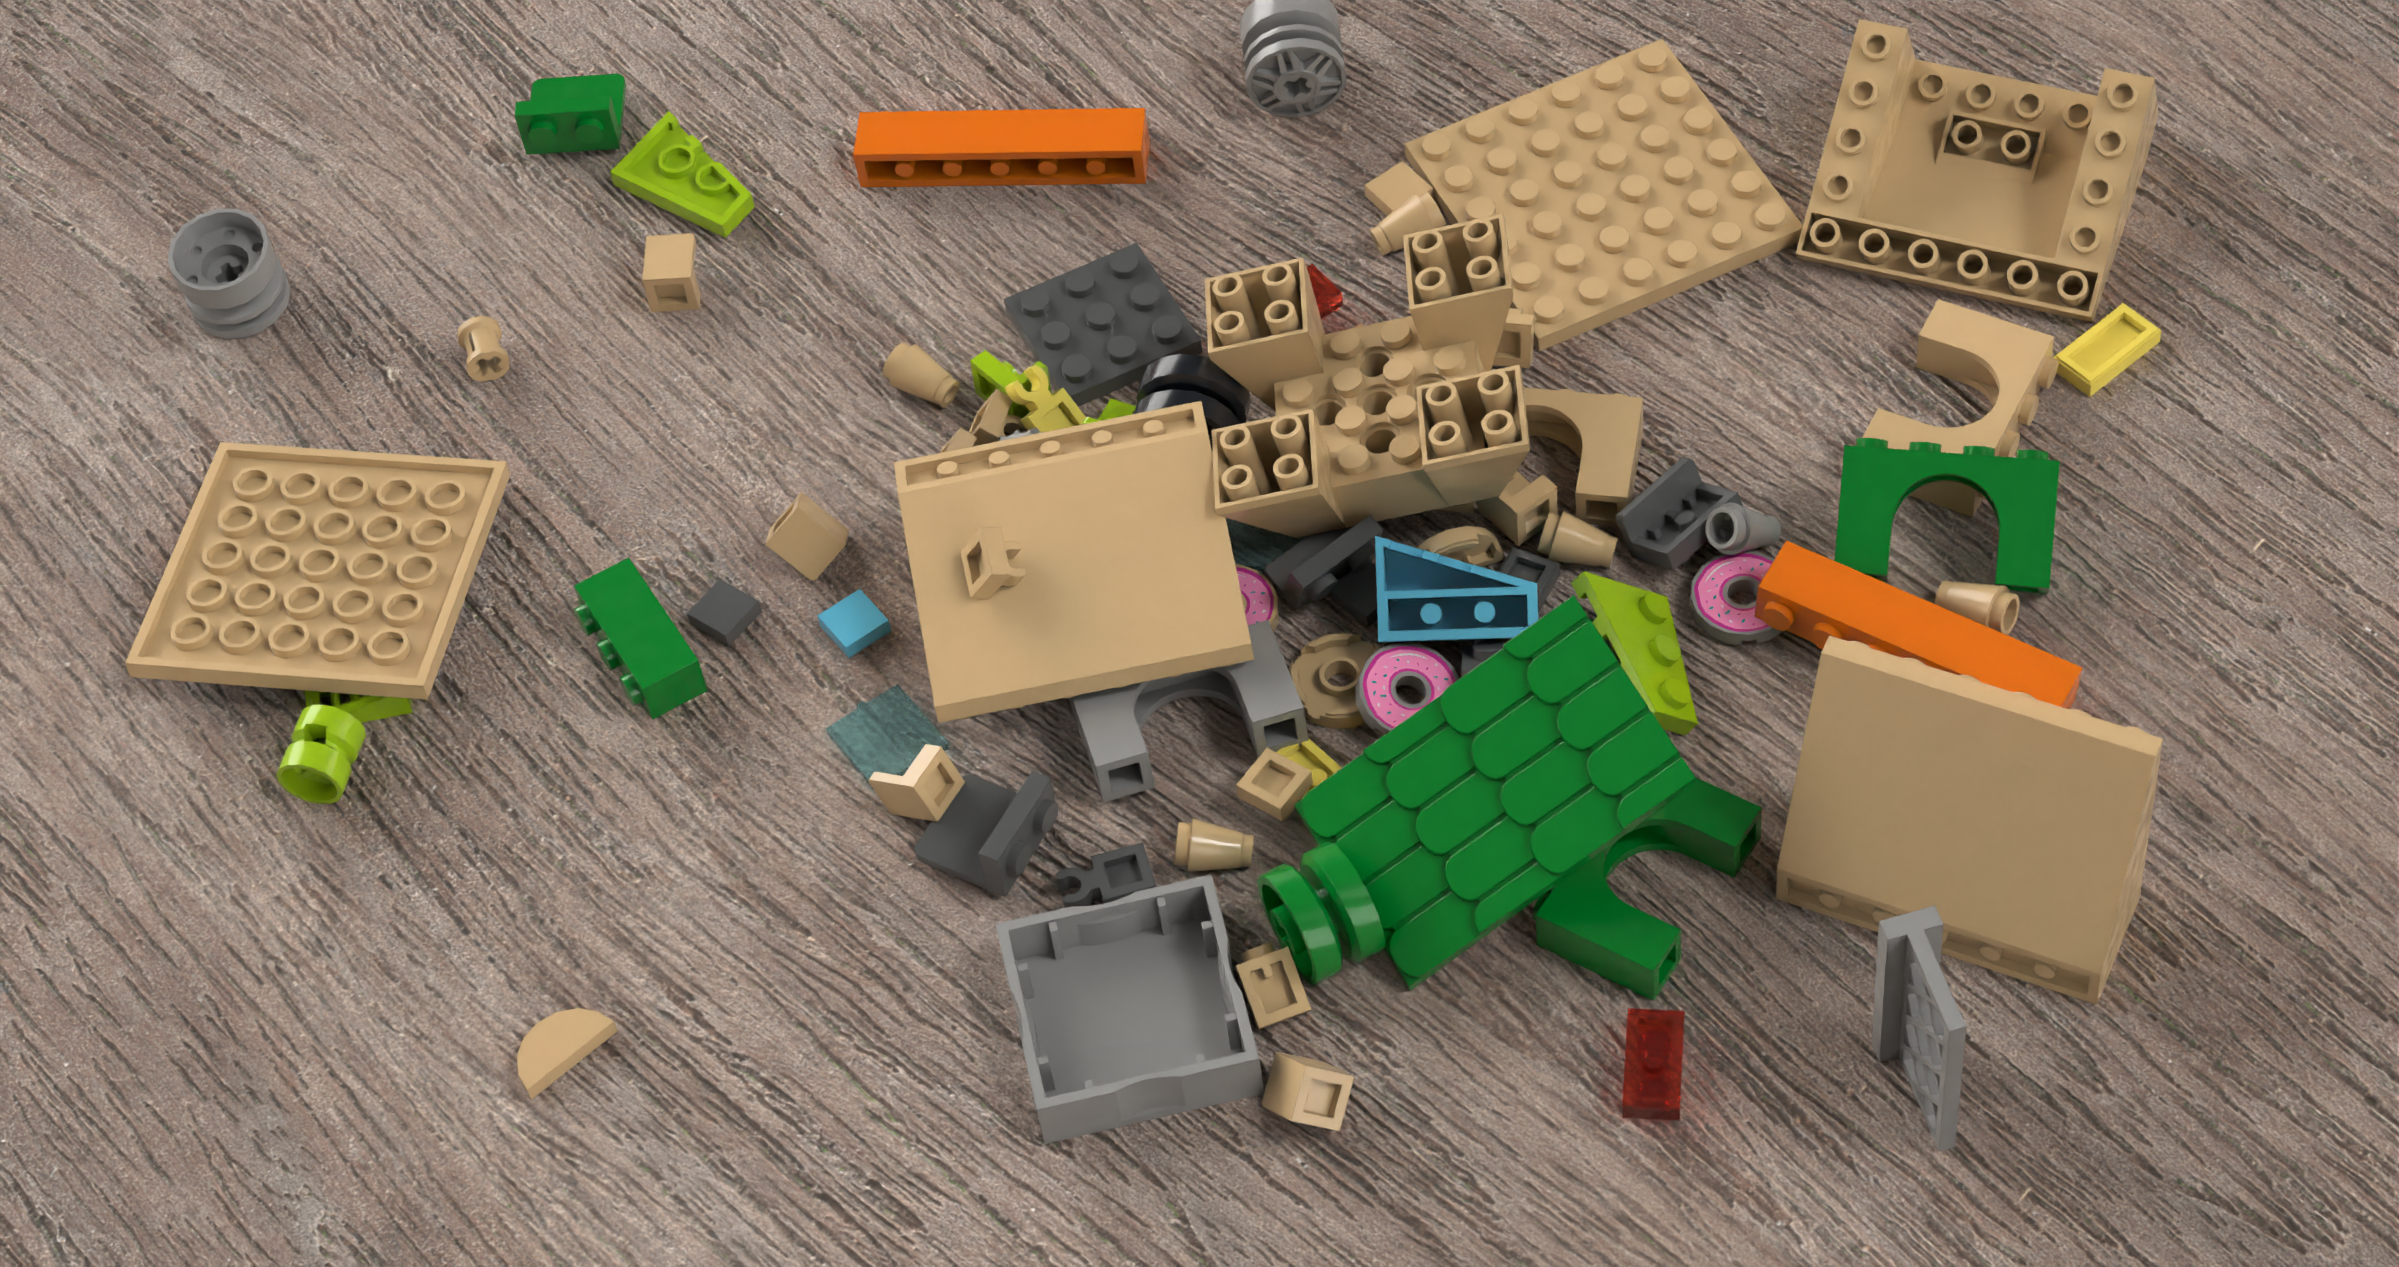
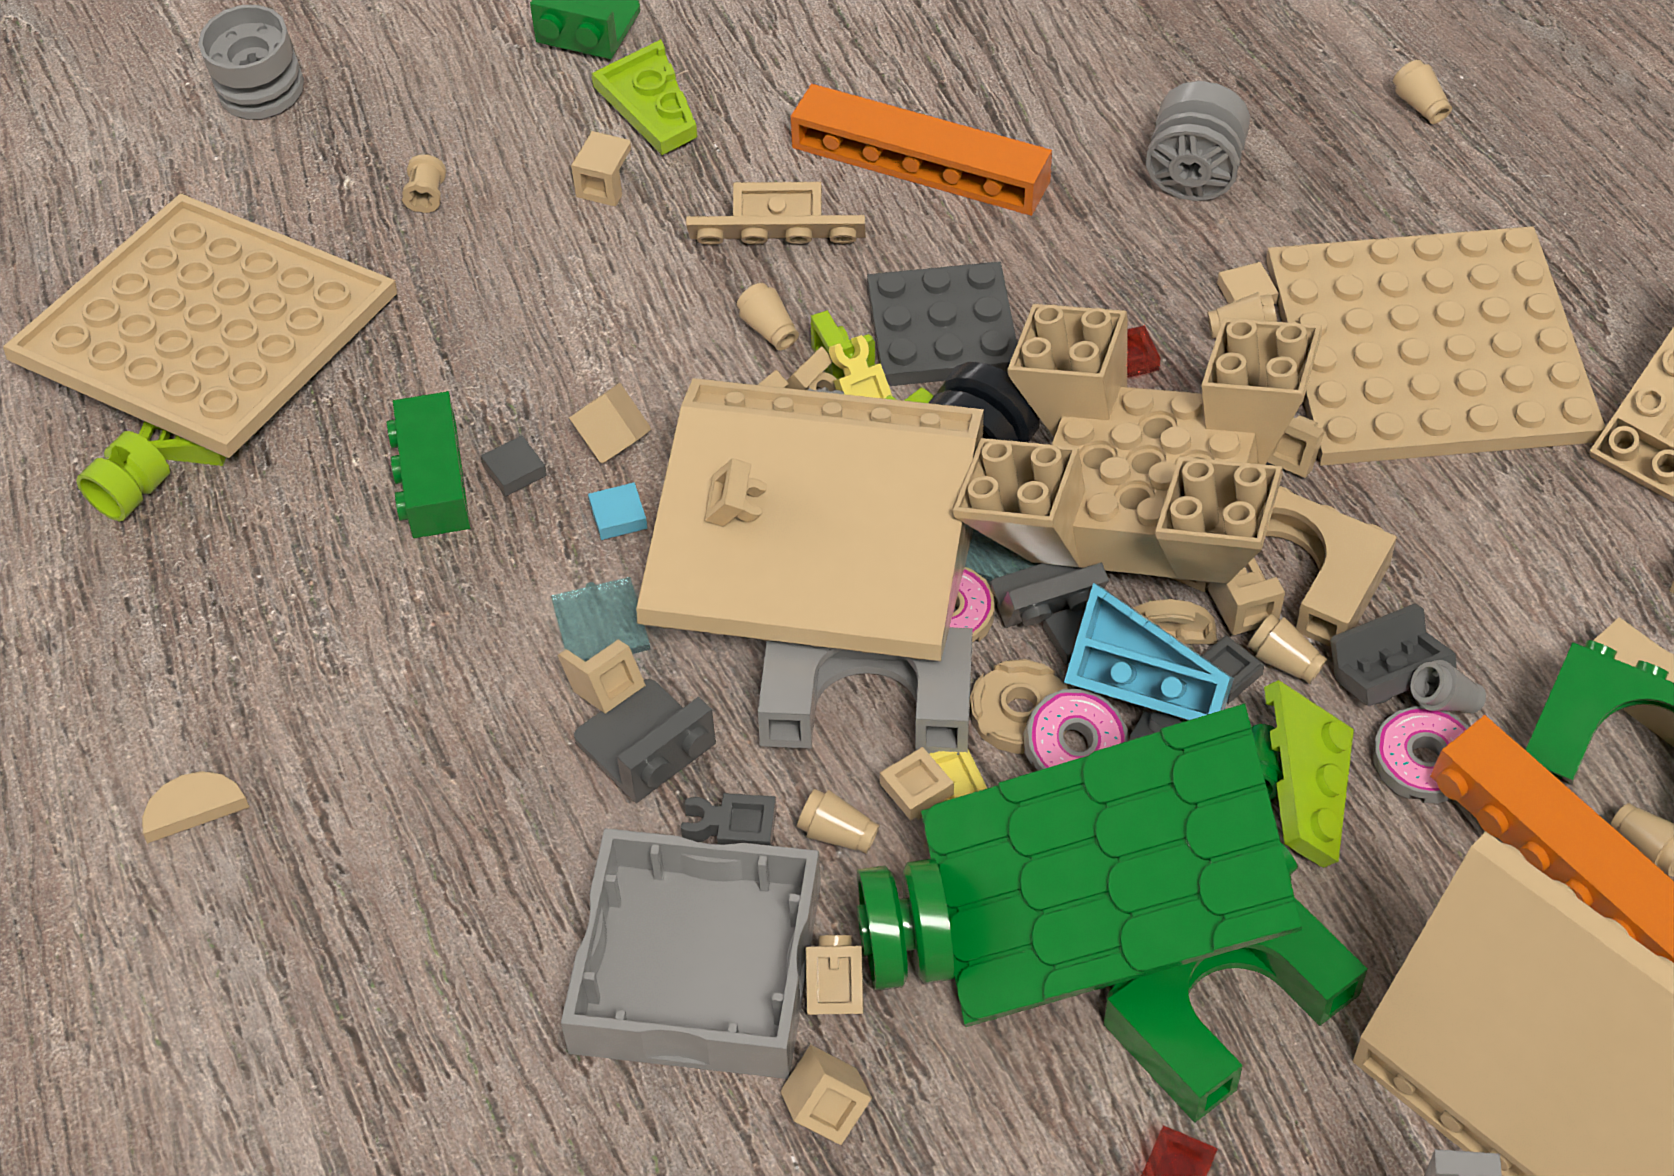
camera: 15 degrees right, 0 degrees up
(882, 261) = (776, 211): none -> tan bracket

